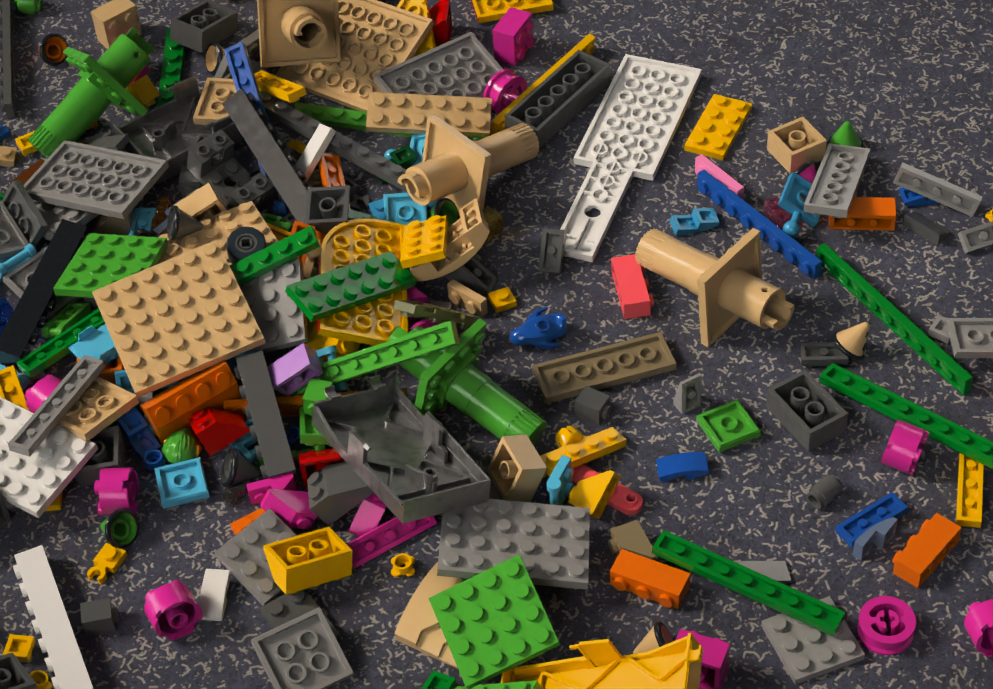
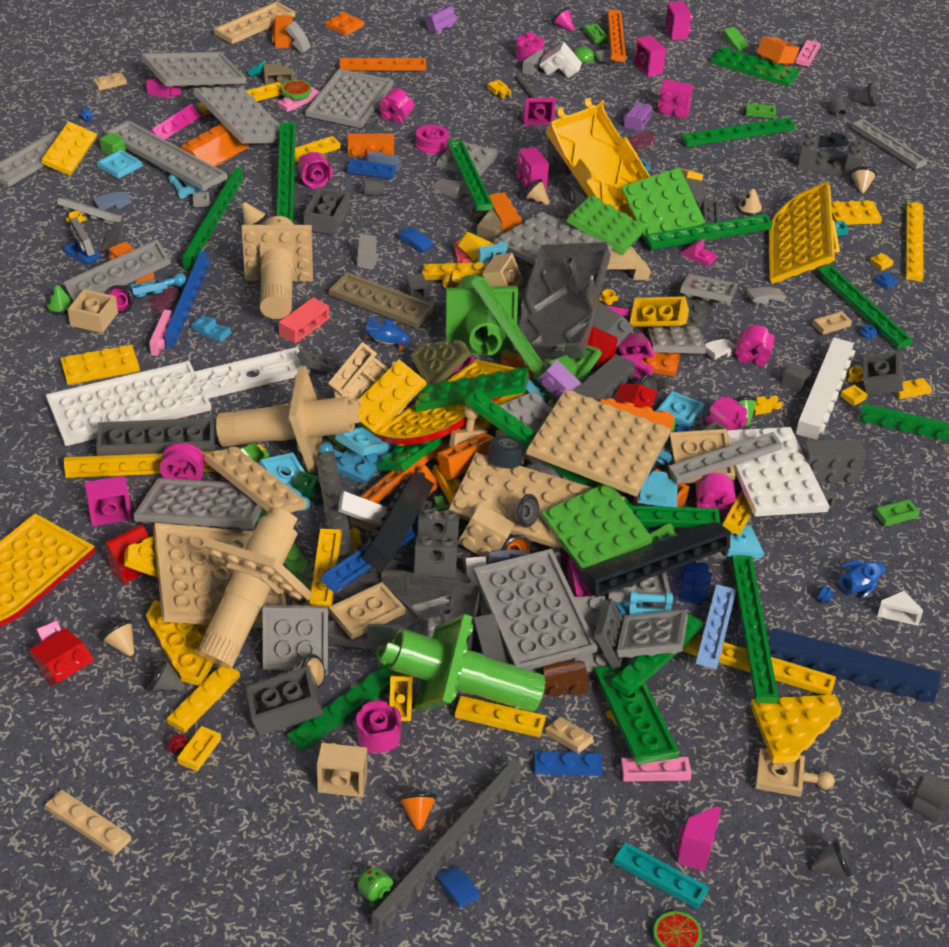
camera: 140 degrees left, 5 degrees down
(327, 207) = (412, 454): dark grey slope -> none
(728, 425) = (381, 235): bright green plate -> none

